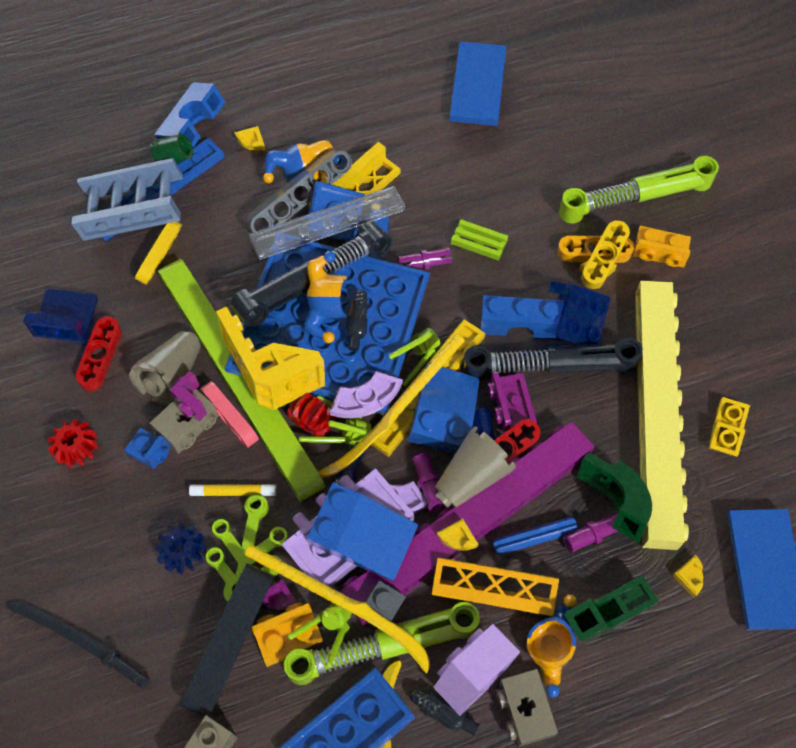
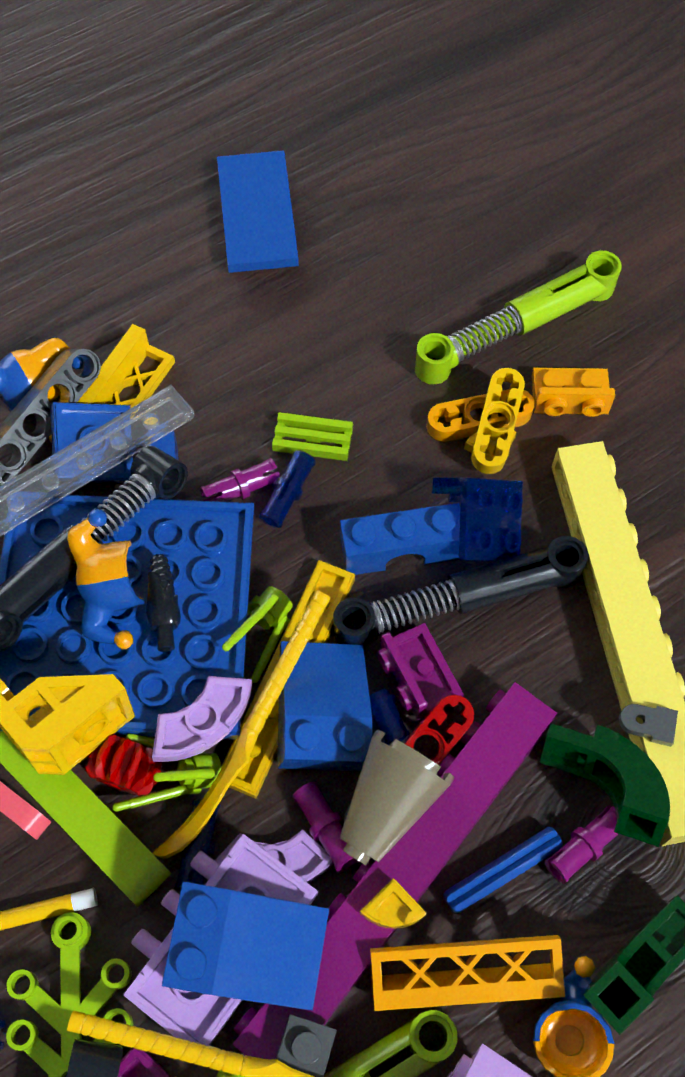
camera: 15 degrees left, 0 degrees up
(454, 269) = (287, 489): none -> clear blue pin
(658, 468) = (657, 725): none -> dark grey piece

